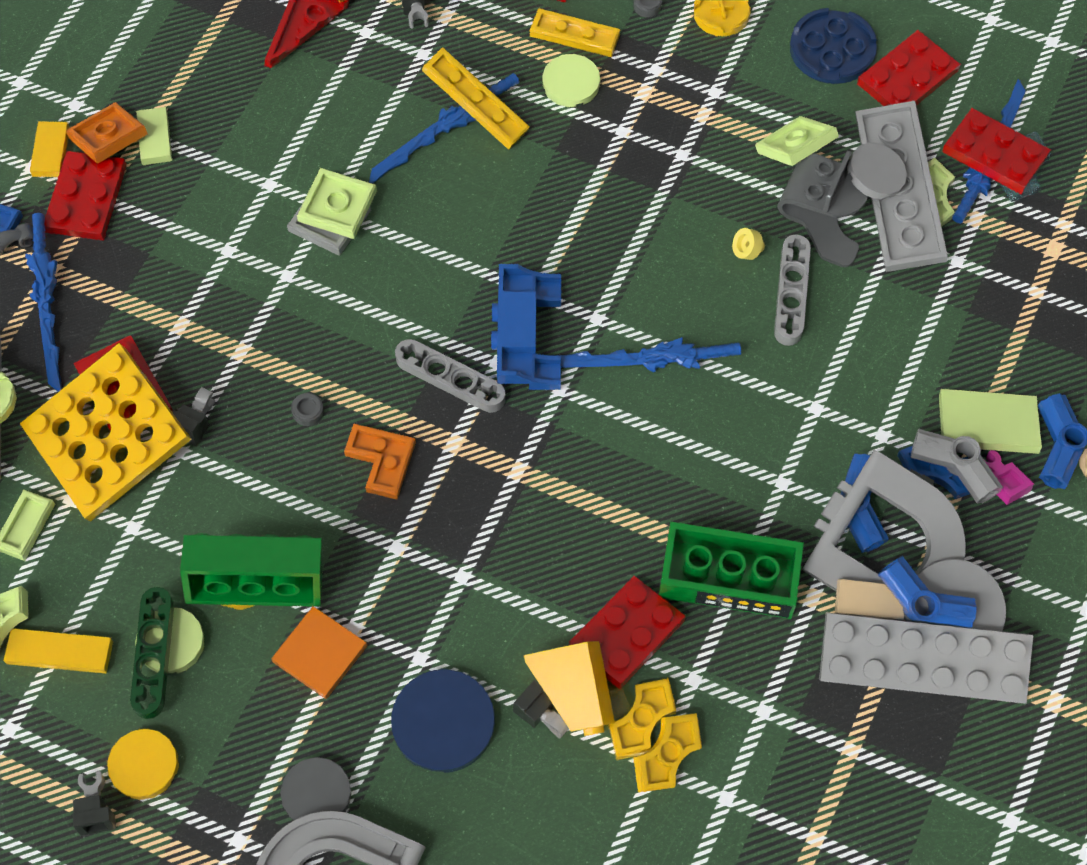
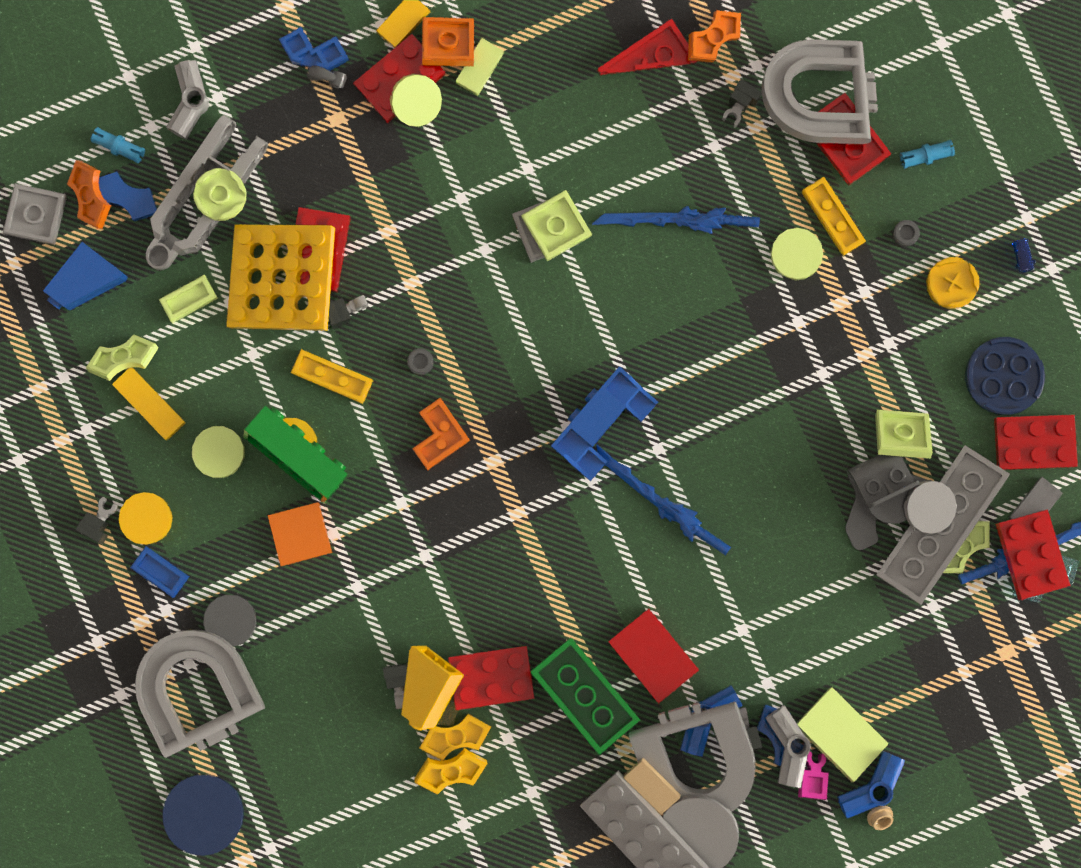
camera: 40 degrees right, 20 degrees up
(43, 288) = (330, 120): blue sword -> none
(115, 196) = (415, 100): none -> yellowish green tile
(147, 652) = (202, 456): dark green beam -> none
(200, 805) = (159, 572): none -> blue tile
(230, 486) = (332, 376): none -> yellow tile
(442, 720) = (337, 639): dark blue tile -> none
(452, 372) = (527, 413): light grey beam -> none
(475, 98) = (714, 219): yellow tile -> none
(748, 244) = (801, 481): light yellow tile -> none
(759, 491) = (653, 655): none -> red tile
(792, 289) = (801, 535): light grey beam -> none
(942, 608) = (686, 831): blue piece -> none
(953, 108) = (1039, 498): none -> flat silver tile

